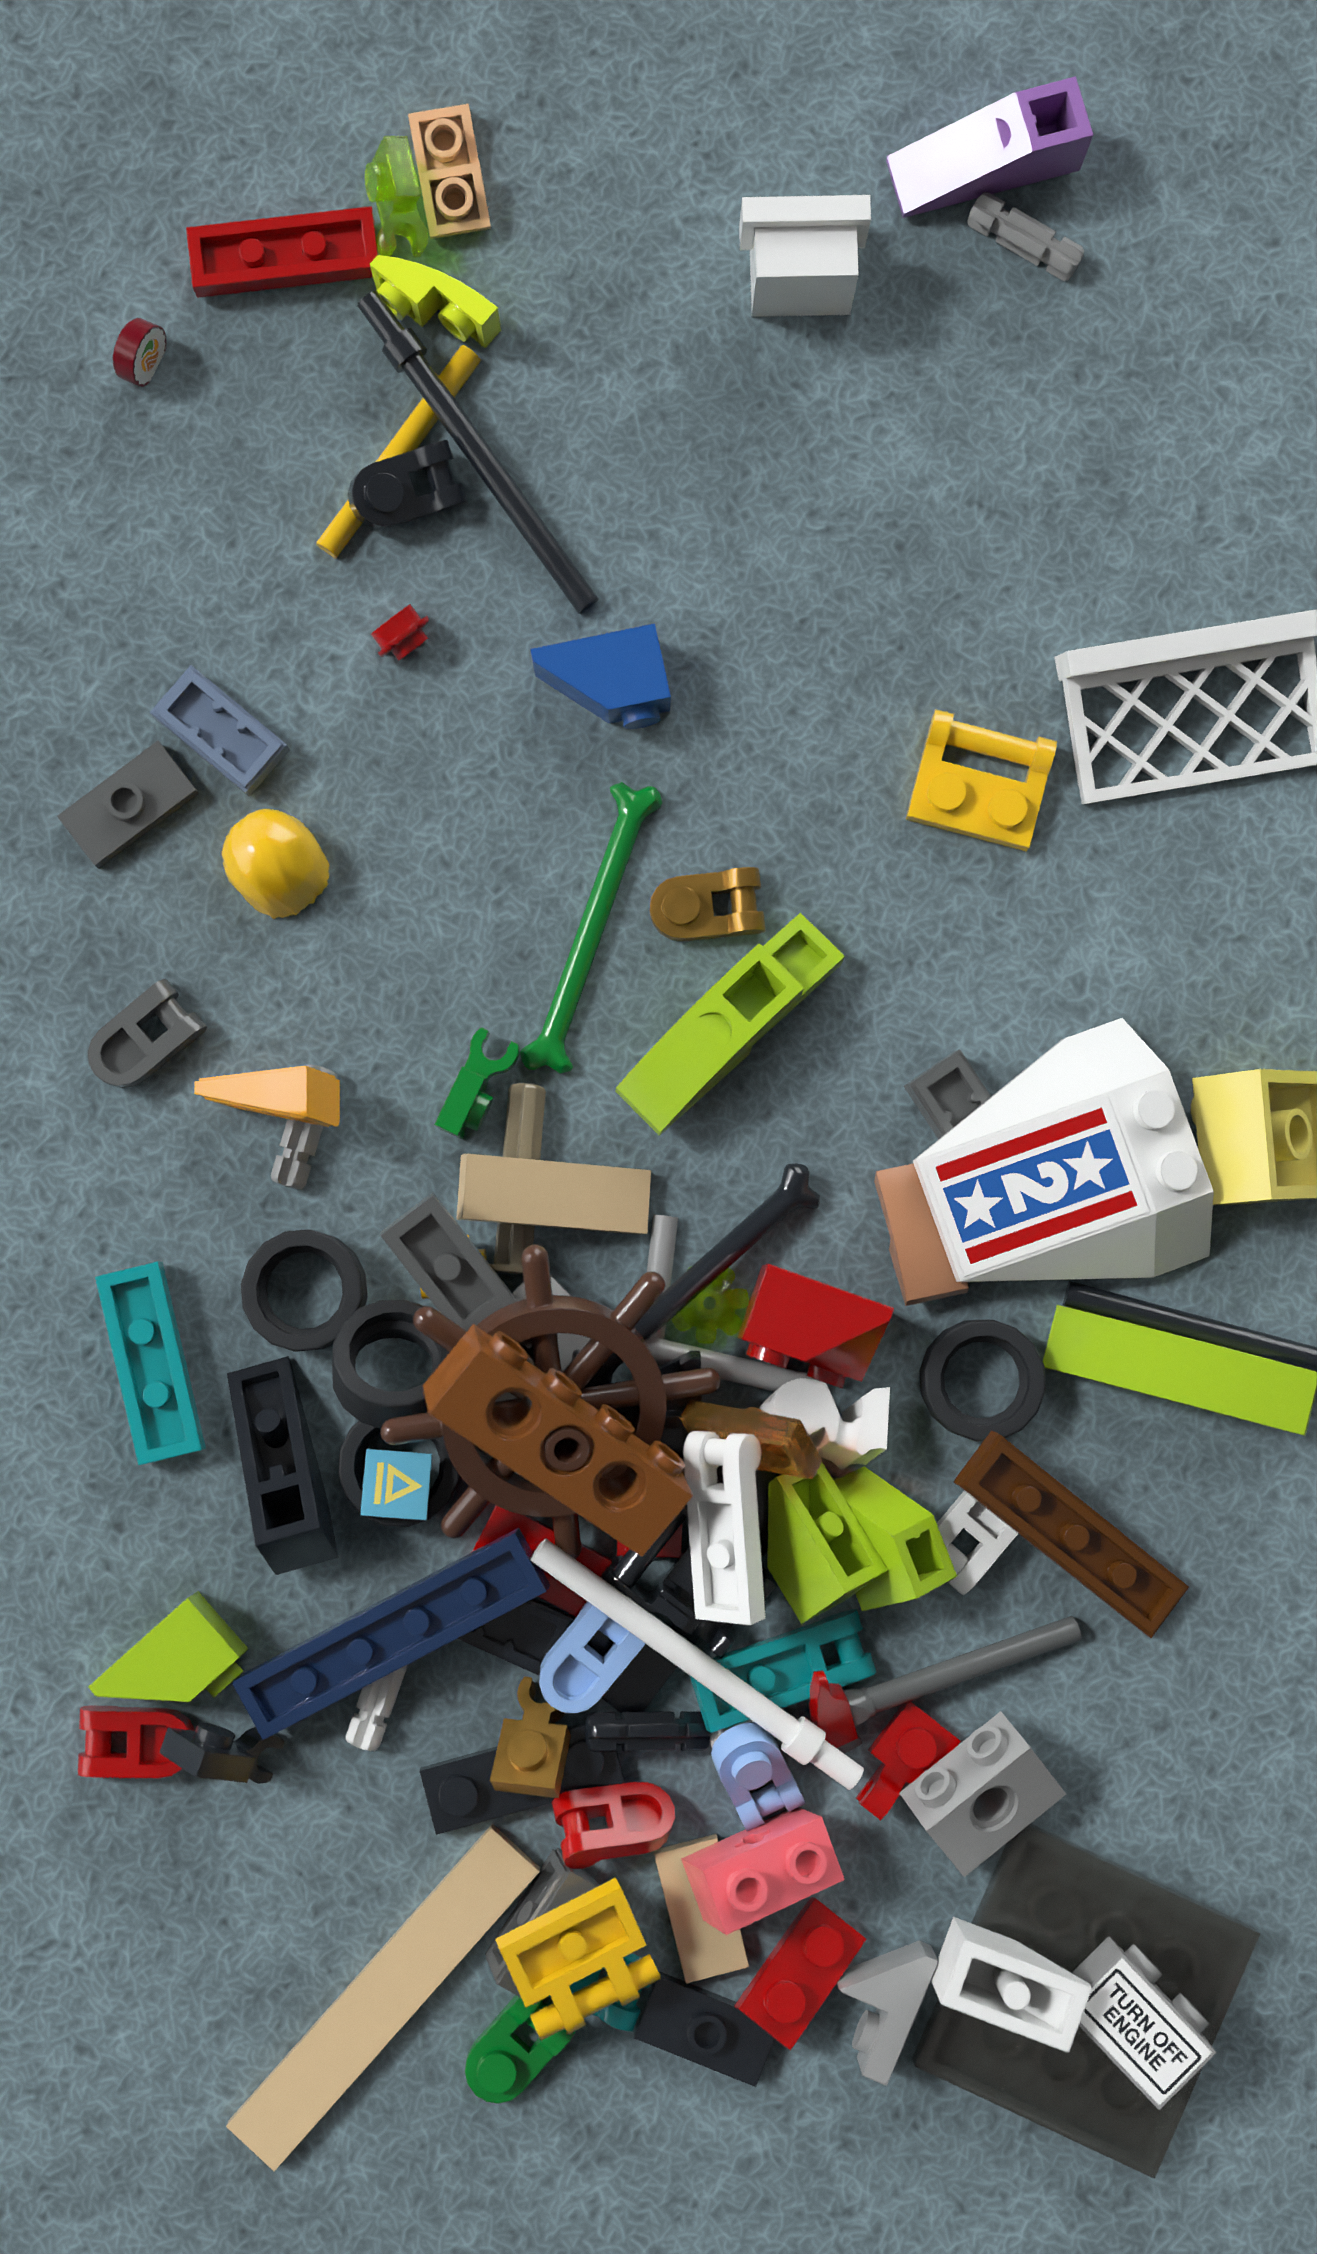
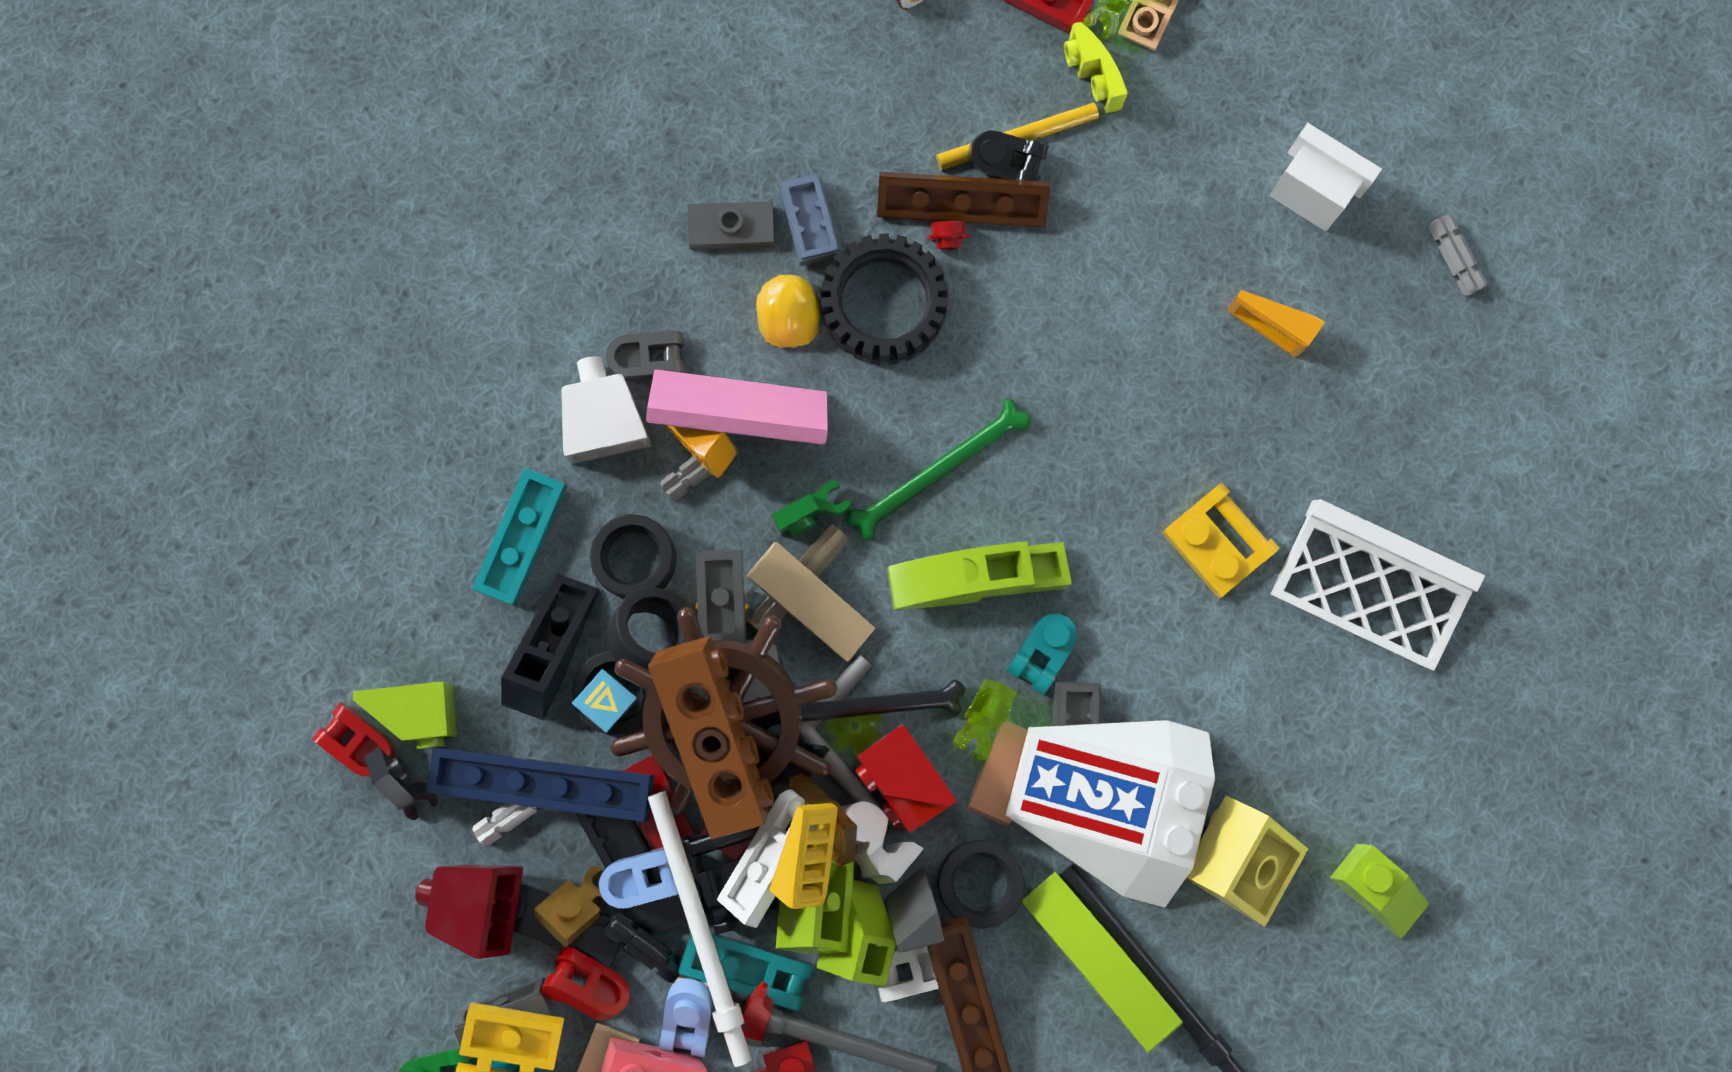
camera: 40 degrees right, 5 degrees down
(139, 1148) = (600, 415): none -> white torso
(301, 1023) = (738, 407): none -> bright pink tile
(357, 697) = (884, 250): none -> black tyre
(383, 1997) = (381, 993): tan tile -> none
(388, 577) = (963, 199): none -> reddish brown tile
(407, 355) = (1059, 86): black bar -> none
(415, 1830) = (472, 907): none -> dark red torso
(610, 675) = (1048, 335): blue slope -> none
(684, 906) = (1000, 492): pearl gold plate -> none
(767, 1498) = (801, 871): none -> yellow slope
(850, 1176) = (986, 712): none -> clear neon green plate
(867, 1034) = (1053, 638): none -> teal plate
(876, 468) = (1277, 322): none -> light orange slope
(932, 1470) = (914, 914): none -> dark grey slope
(996, 149) = (1473, 194): slope -> none

